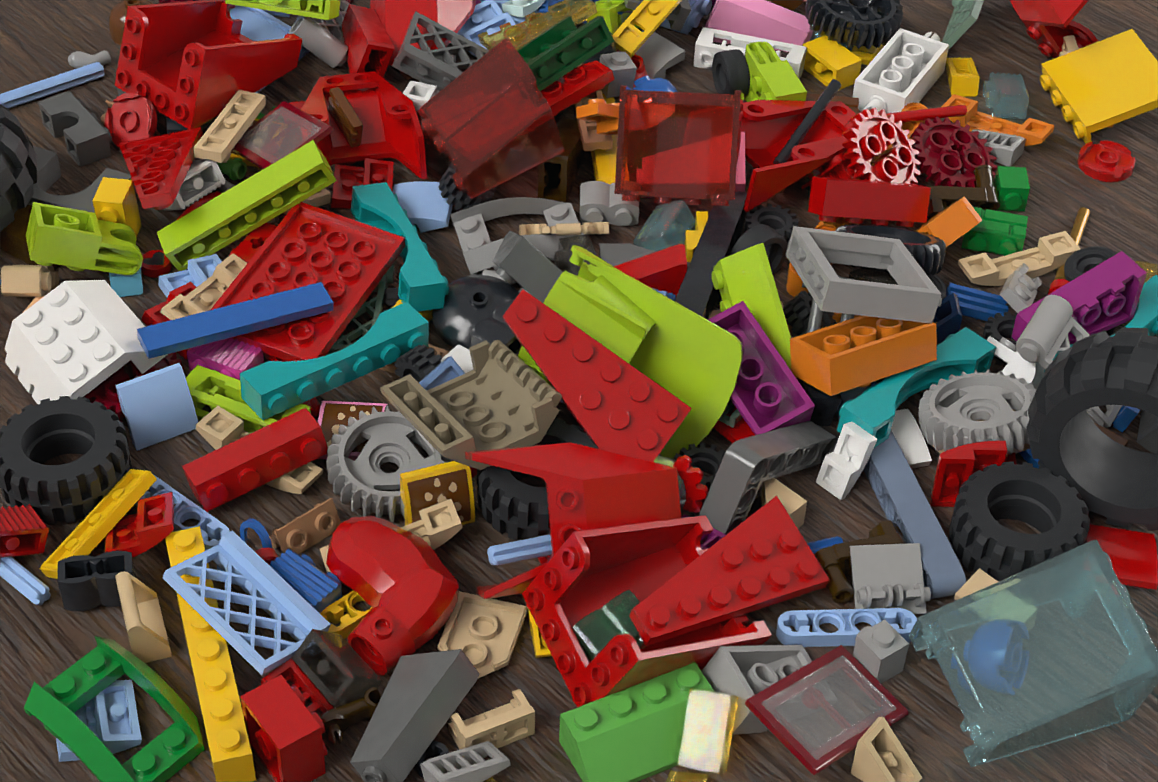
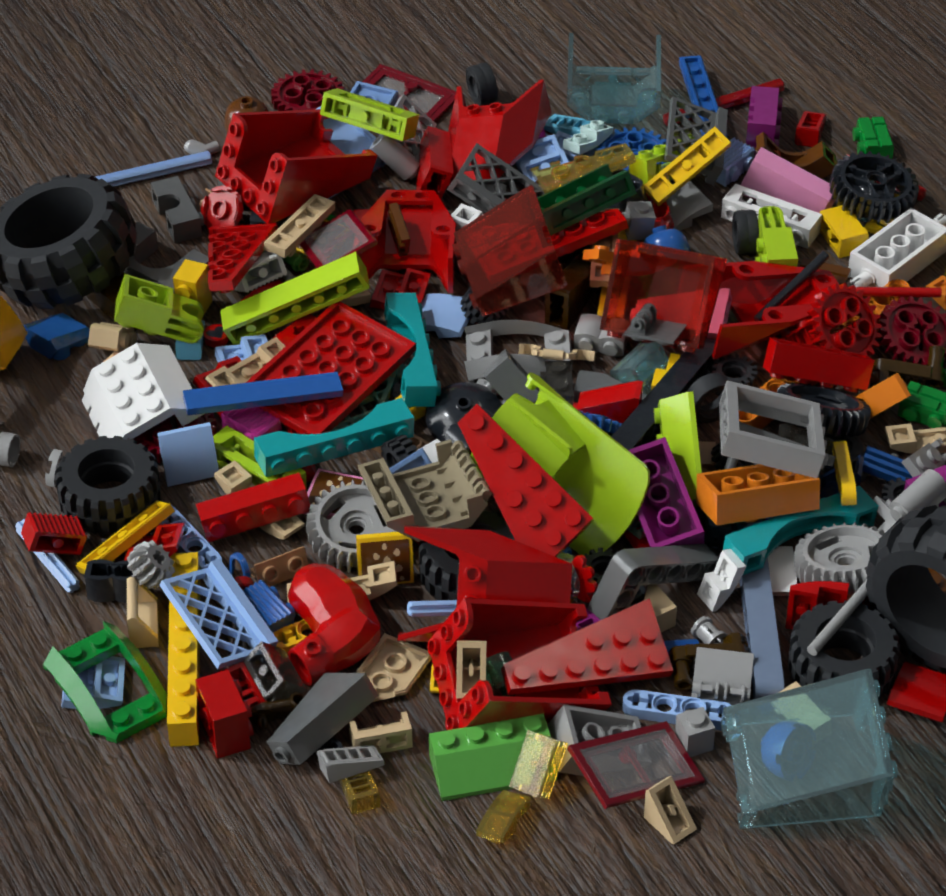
camera: 15 degrees right, 0 degrees up
(143, 552) = (150, 564): none -> light grey gear
(594, 618) = (470, 665): none -> tan slope
(663, 185) = (647, 327): none -> dark grey hinge
(849, 526) = (706, 631): none -> light grey bush
(955, 322) = (844, 473): none -> yellow beam
(1010, 485) = (838, 620): none -> light grey bar

